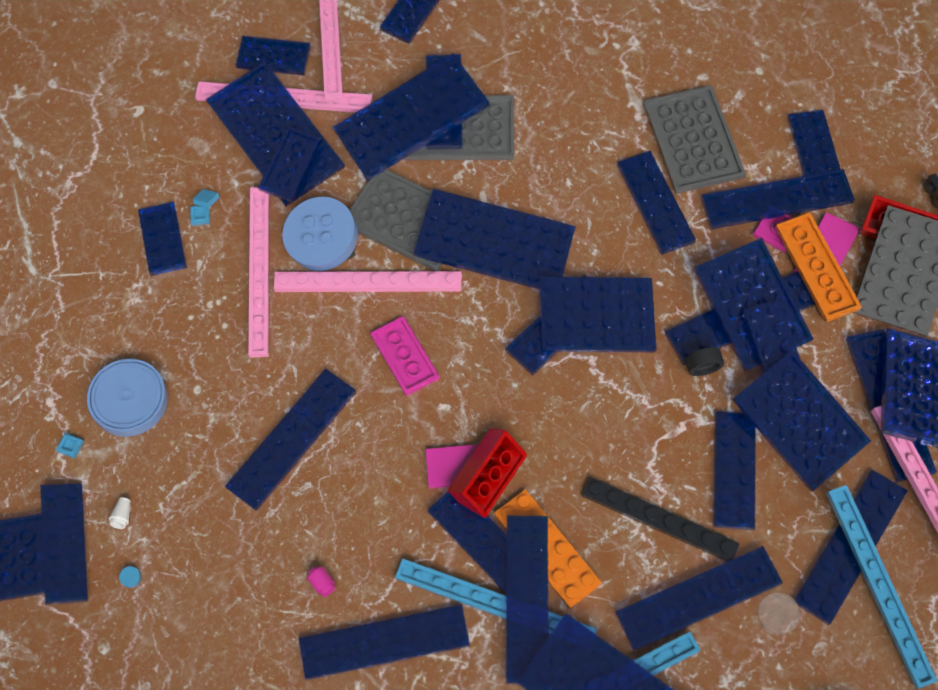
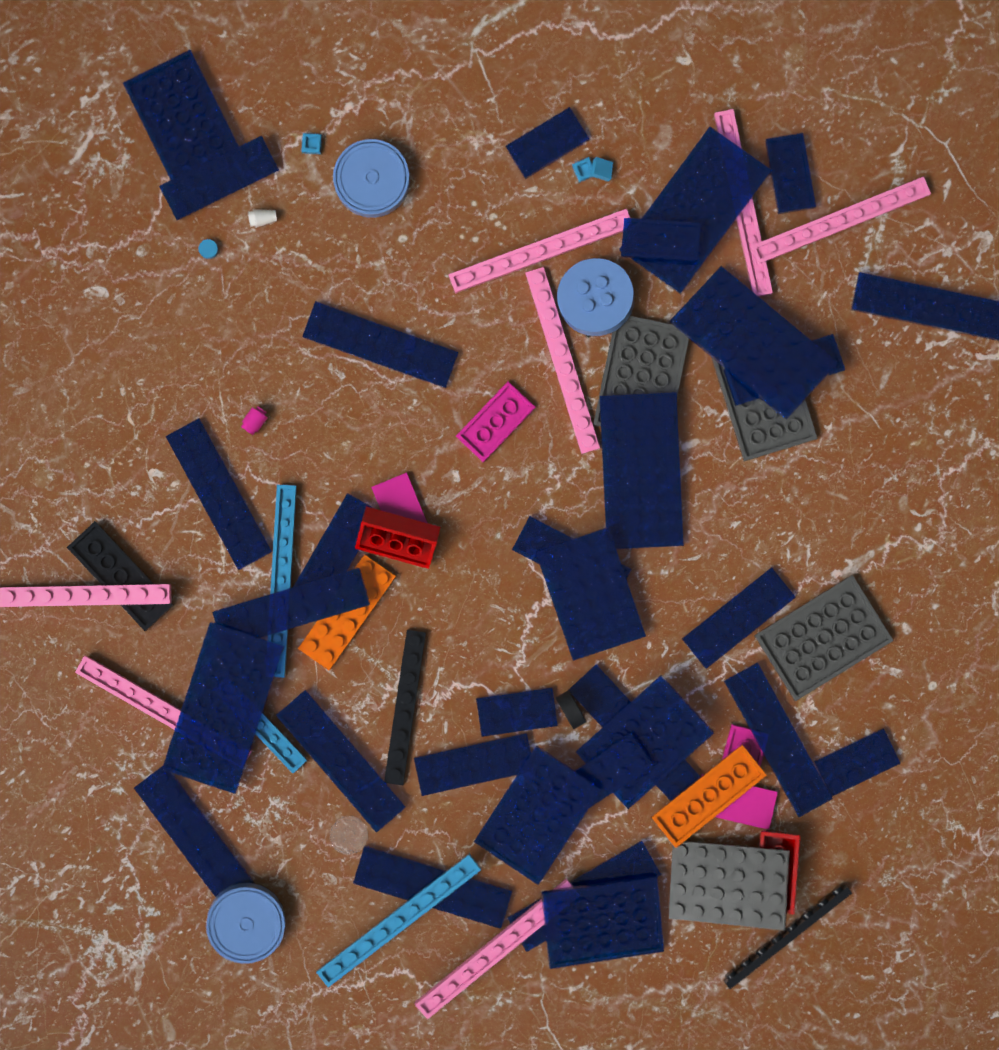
camera: 70 degrees right, 20 degrees up
(692, 416) = (516, 712): none -> clear blue plate

